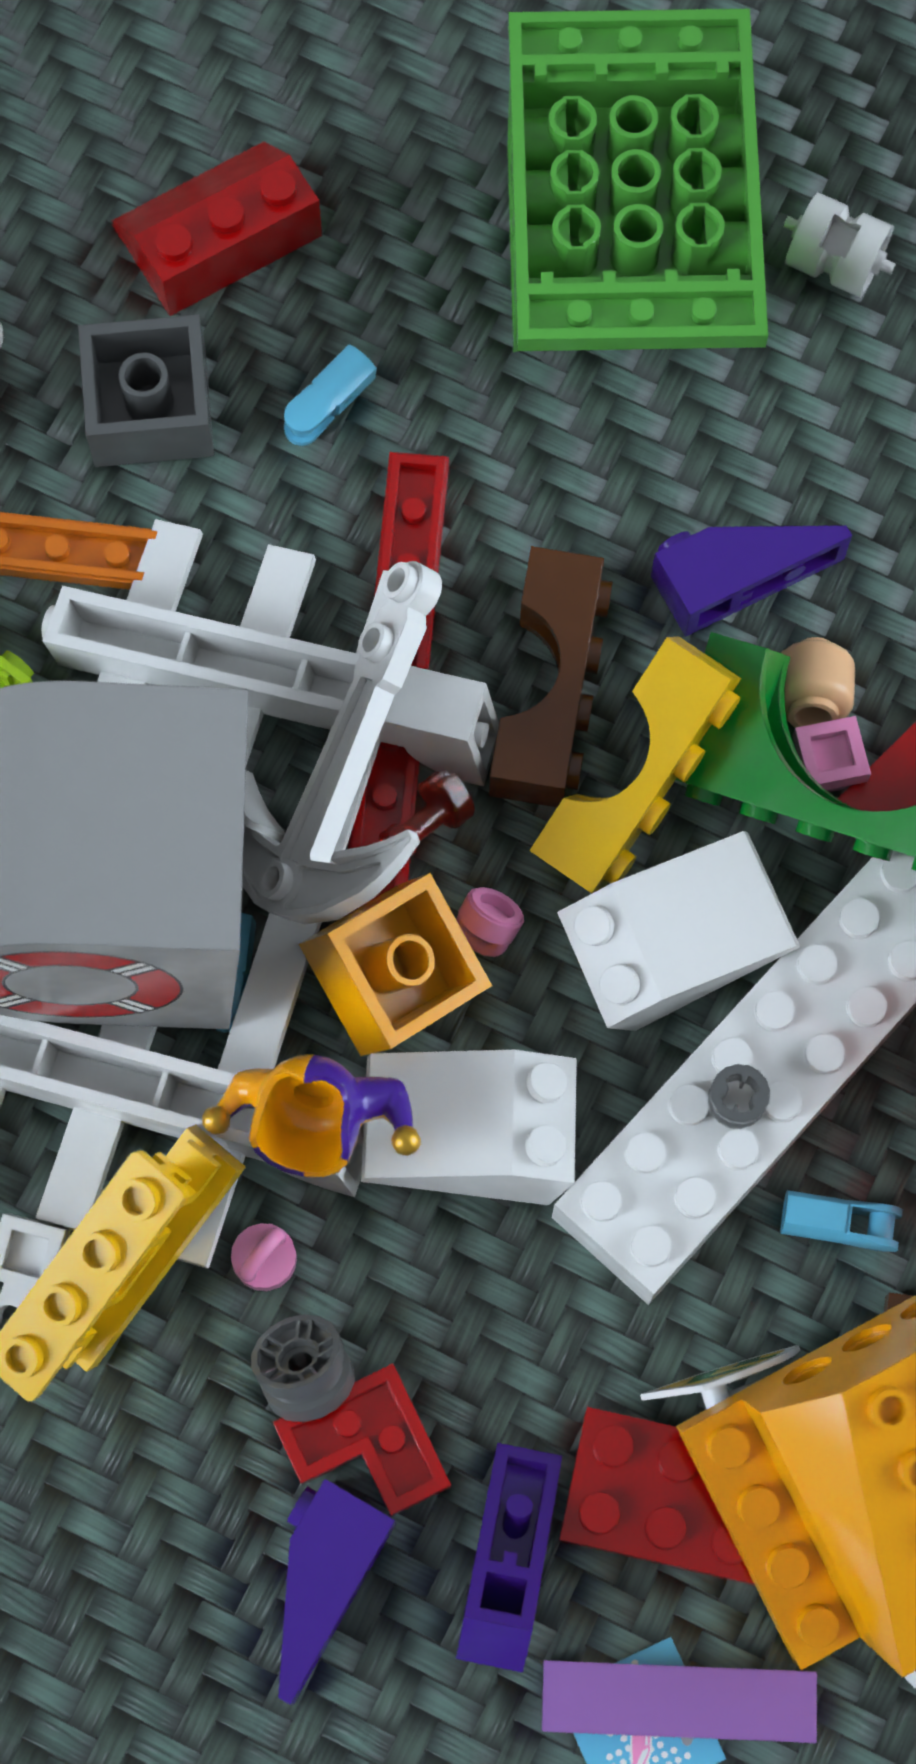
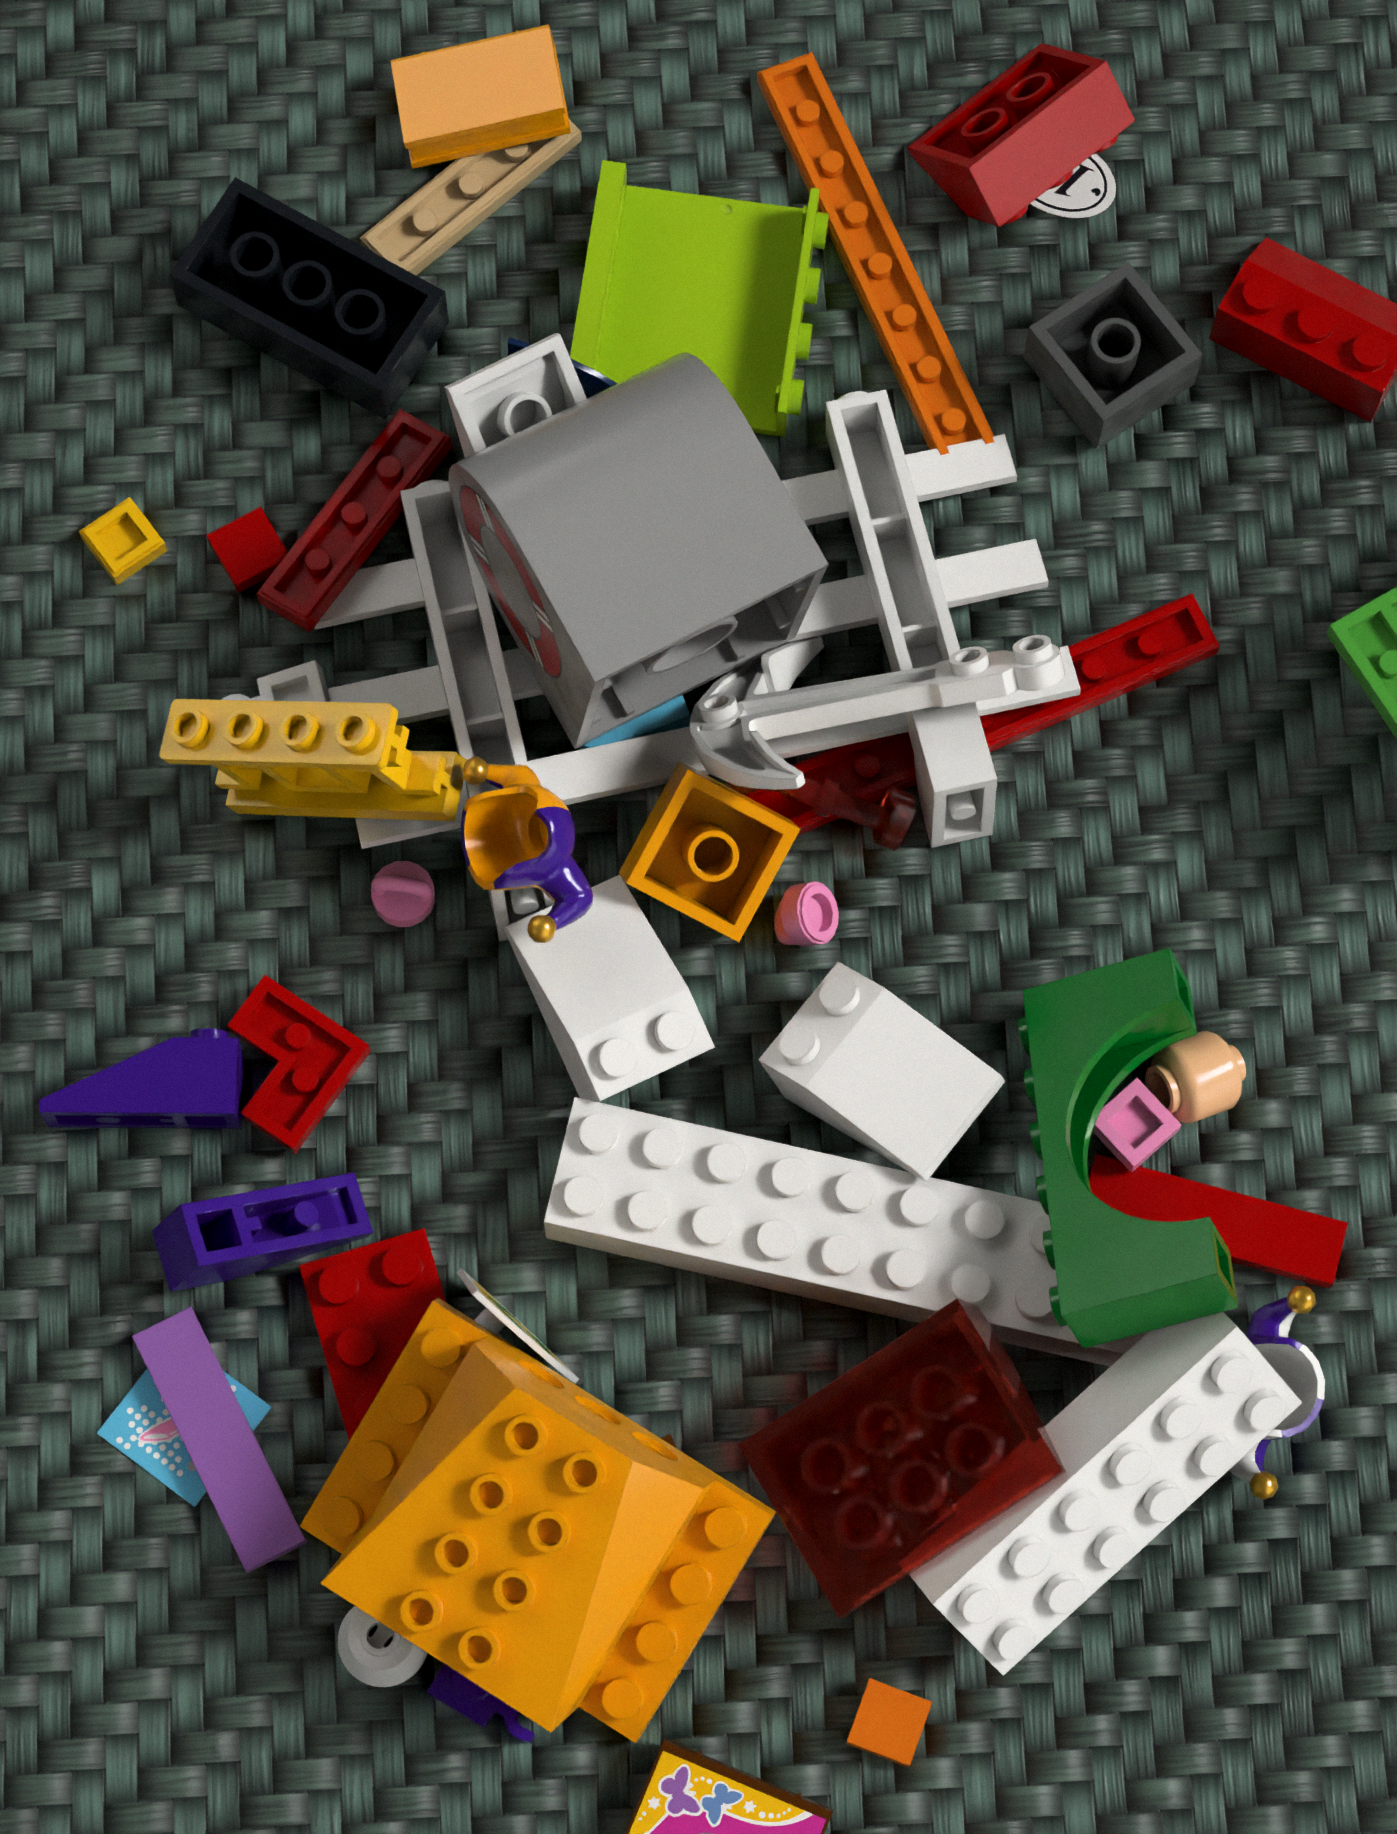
camera: 60 degrees right, 0 degrees up
(303, 1368) = (322, 972): dark grey wheel -> none
(327, 395) = (1212, 511): medium azure bar -> none
(535, 747) = (986, 870): reddish brown arch -> none
(681, 698) = (1085, 954): yellow arch -> none
(734, 567) = (1262, 947): dark purple slope -> none
(757, 1103) = (748, 1177): dark grey bush -> none
(830, 1220) = (708, 1351): medium azure bar -> none

